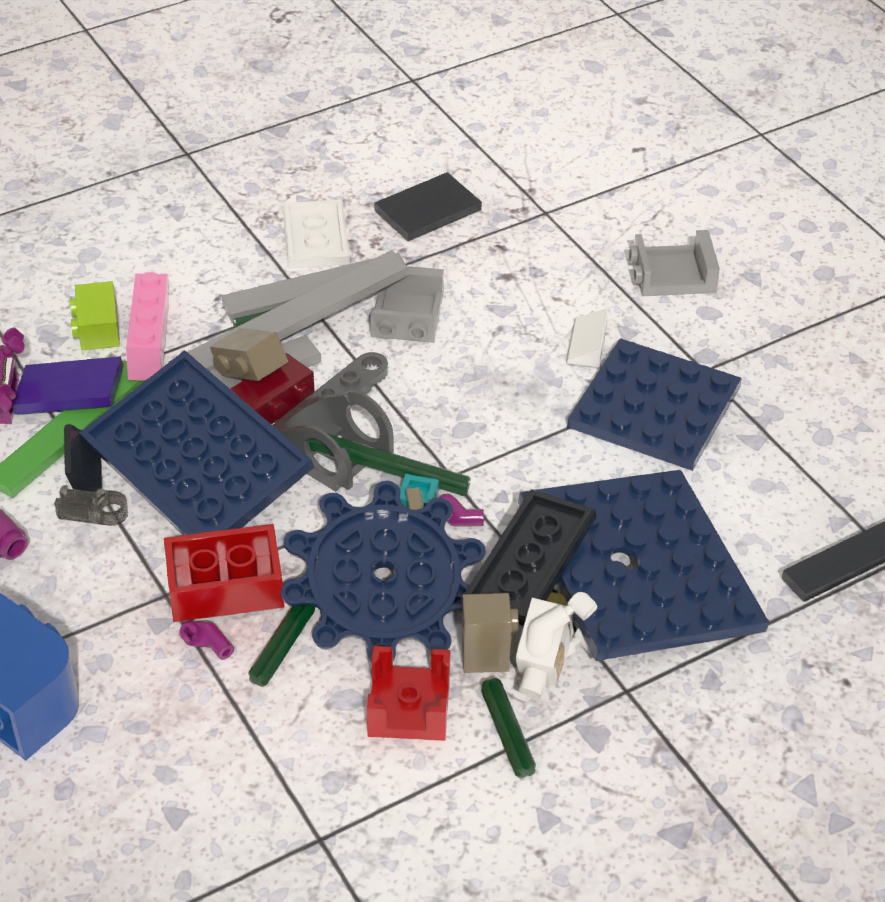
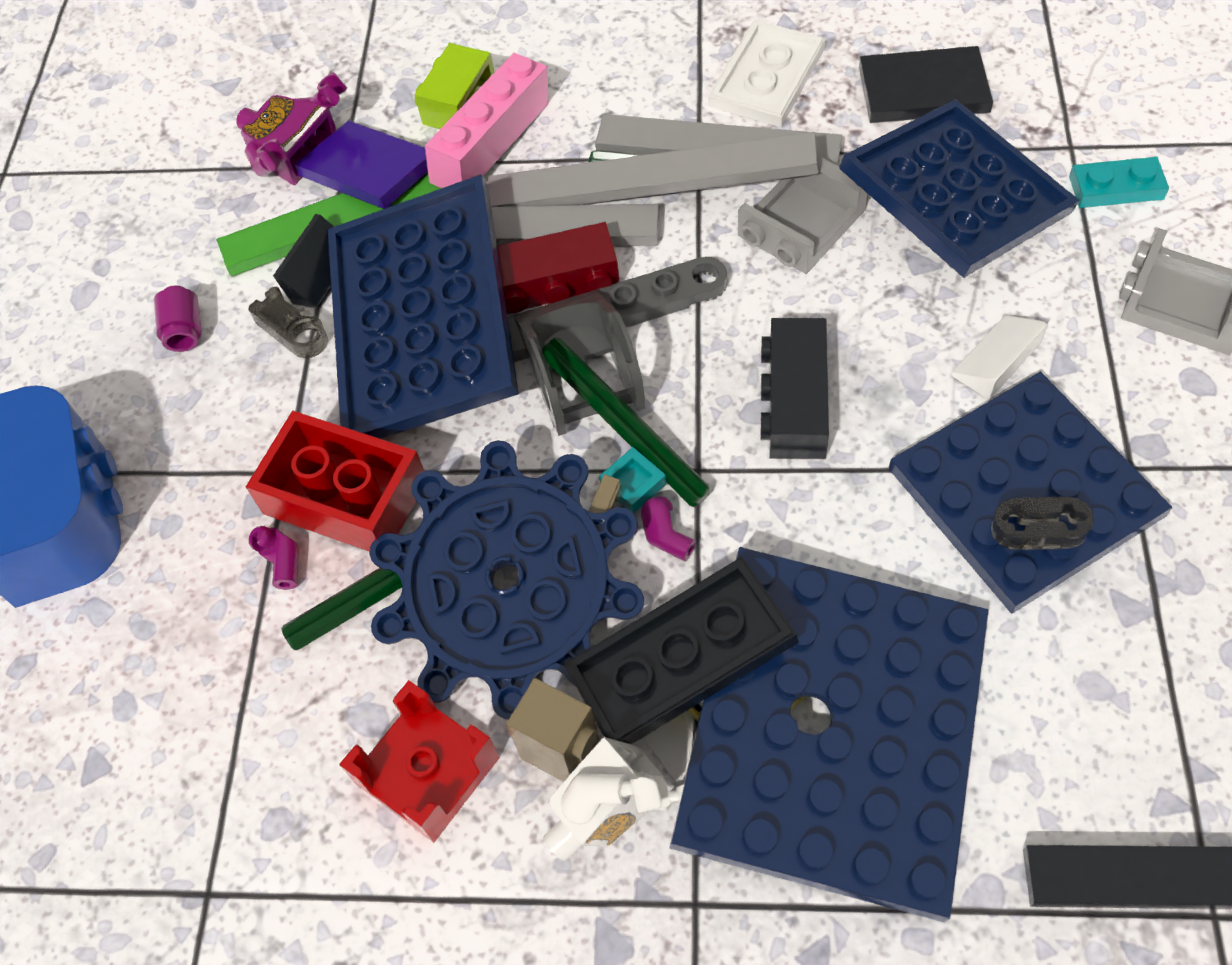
camera: 40 degrees right, 15 degrees up
(248, 354) = (553, 208): dark tan brick -> none
(483, 402) = (796, 389): none -> black brick
(500, 253) = (958, 186): none -> dark blue plate
(508, 728) = (507, 876): dark green axle -> none
(589, 222) = (1118, 182): none -> teal plate
(680, 410) = (1041, 523): none -> clear smoke beam

